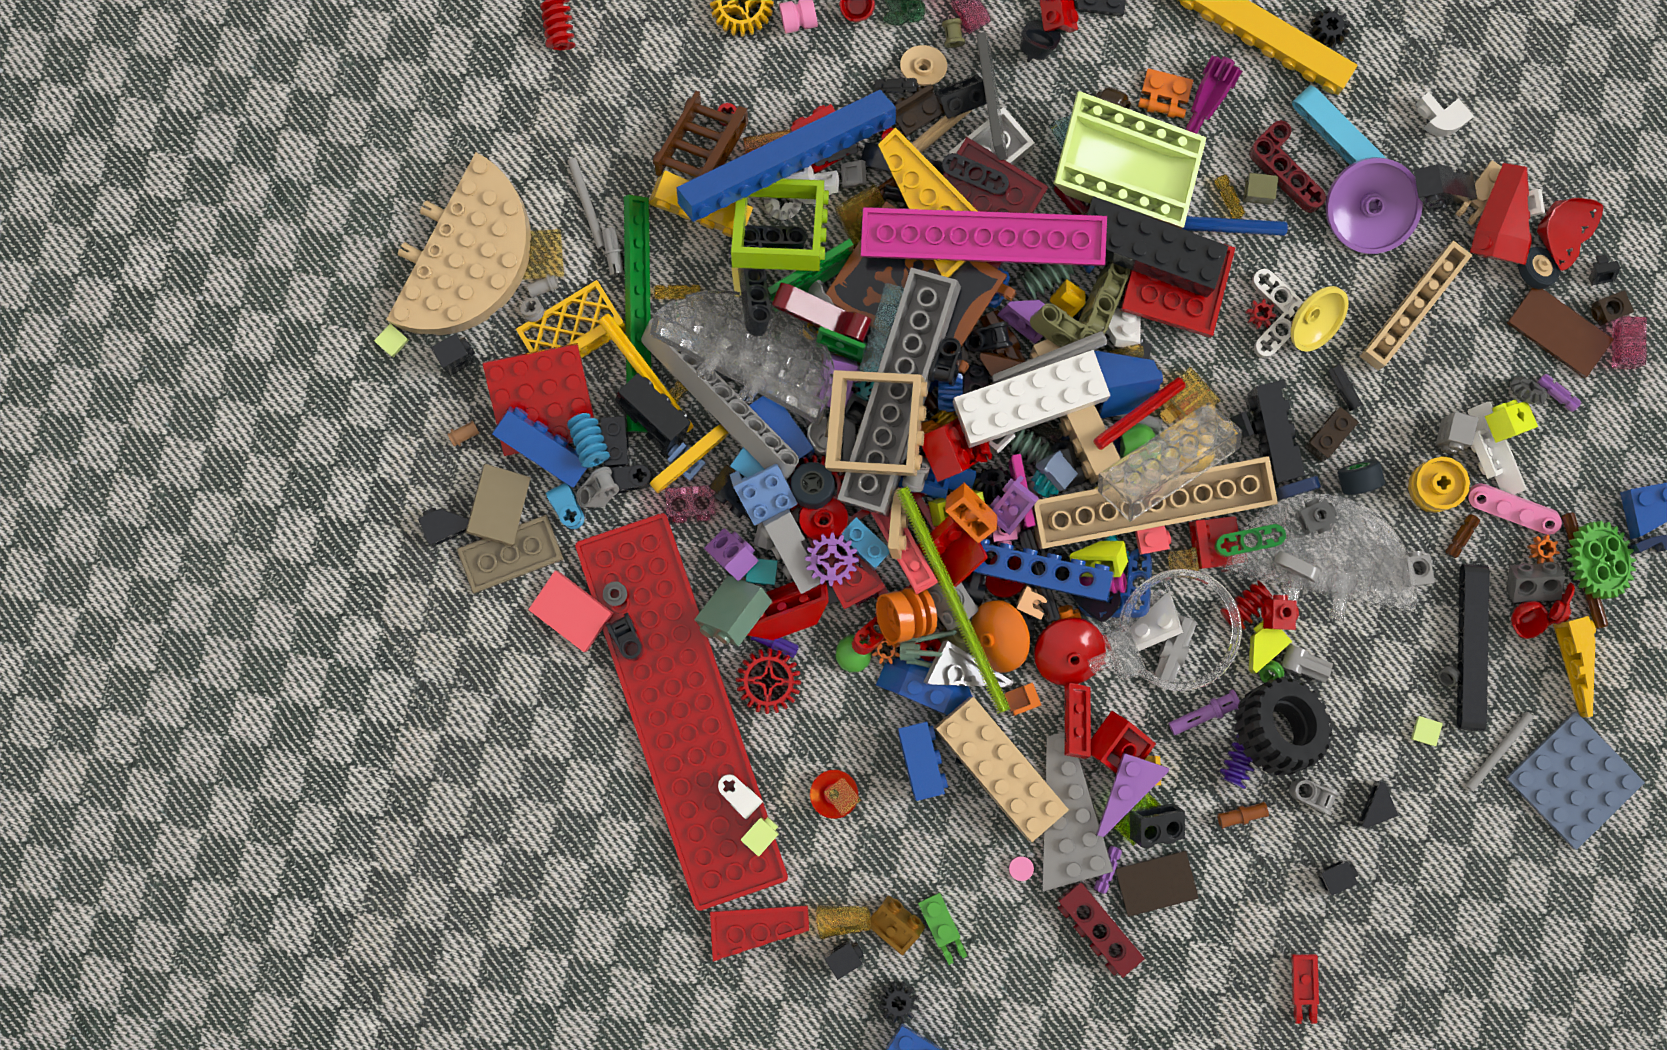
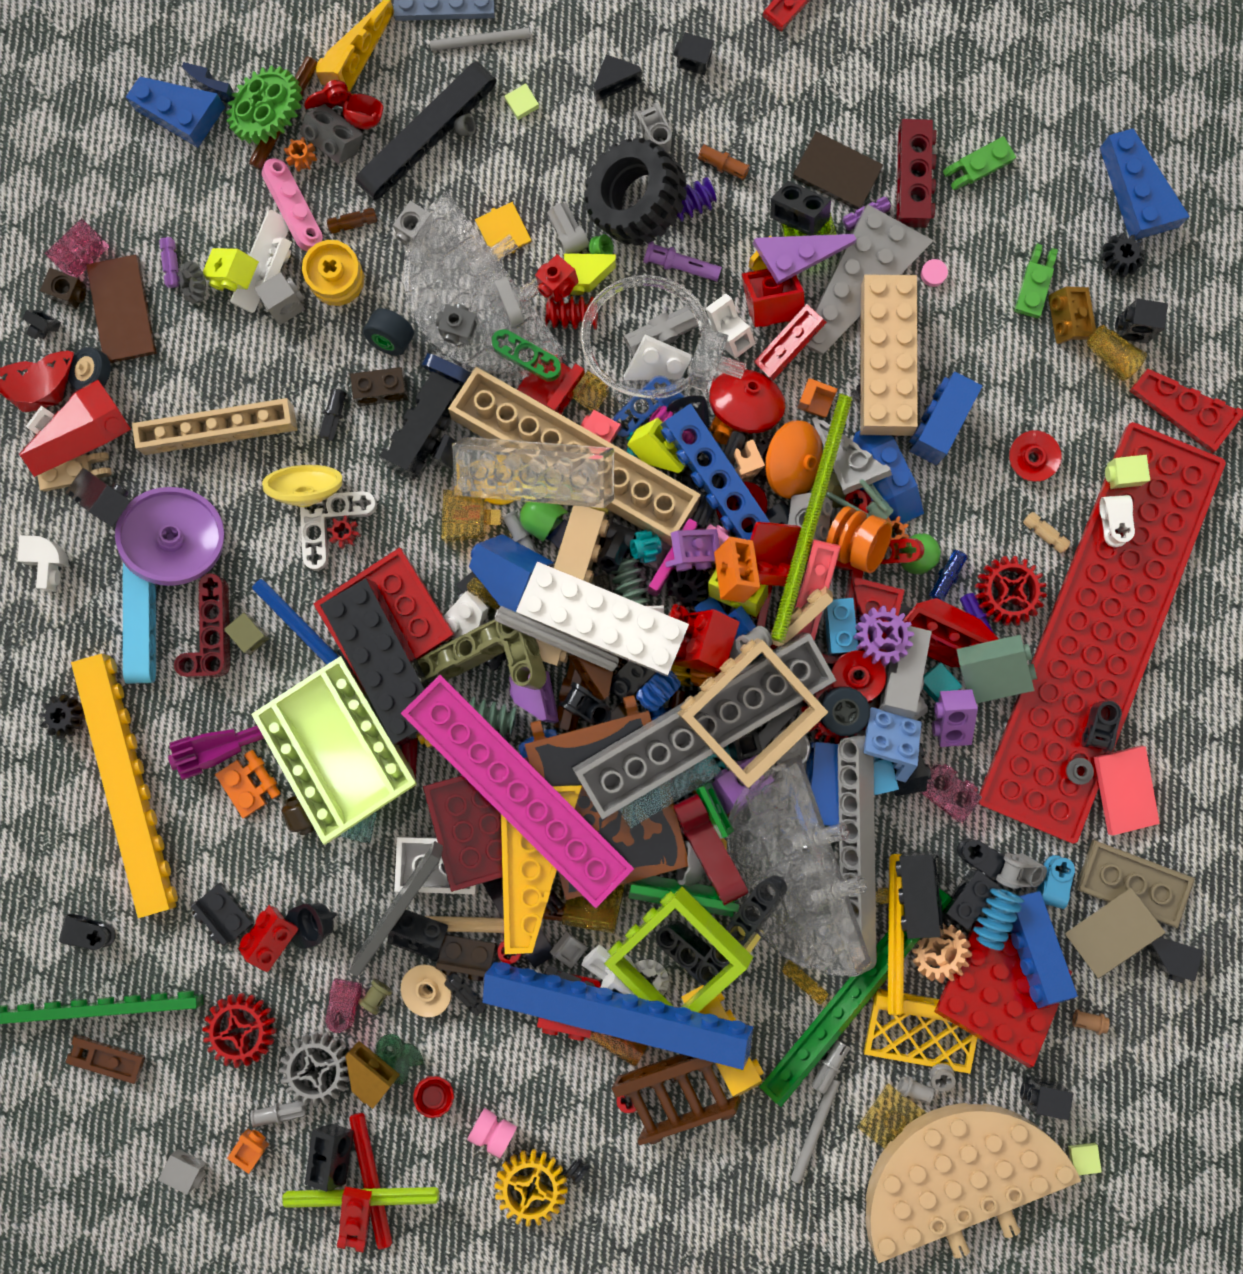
camera: 135 degrees left, 0 degrees up
(602, 388) = (944, 953): none -> light nougat gear
(676, 452) = (923, 831): medium blue bracket -> none
(689, 458) = (924, 829): yellow beam -> none
(721, 41) = (577, 1170): none -> black bush
(778, 747) = (1047, 532): none -> tan axle
(820, 654) = (948, 575): none -> clear blue pin
(842, 796) = (1035, 443): clear yellow panel -> none
(946, 366) = (647, 709): black piece -> none
(972, 164) = (457, 836): black beam -> none
(1057, 470) = (631, 546): sand blue tile -> none
(1059, 983) = (981, 162): none -> bright green hinge
(1069, 298) = (486, 681): yellow panel -> none
(1129, 694) = (725, 320): none -> white brick
(1139, 413) = (522, 532): red axle -> none
(1229, 196) = (277, 650): clear yellow axle -> none
(1355, 629) = (501, 222): none -> yellow piece

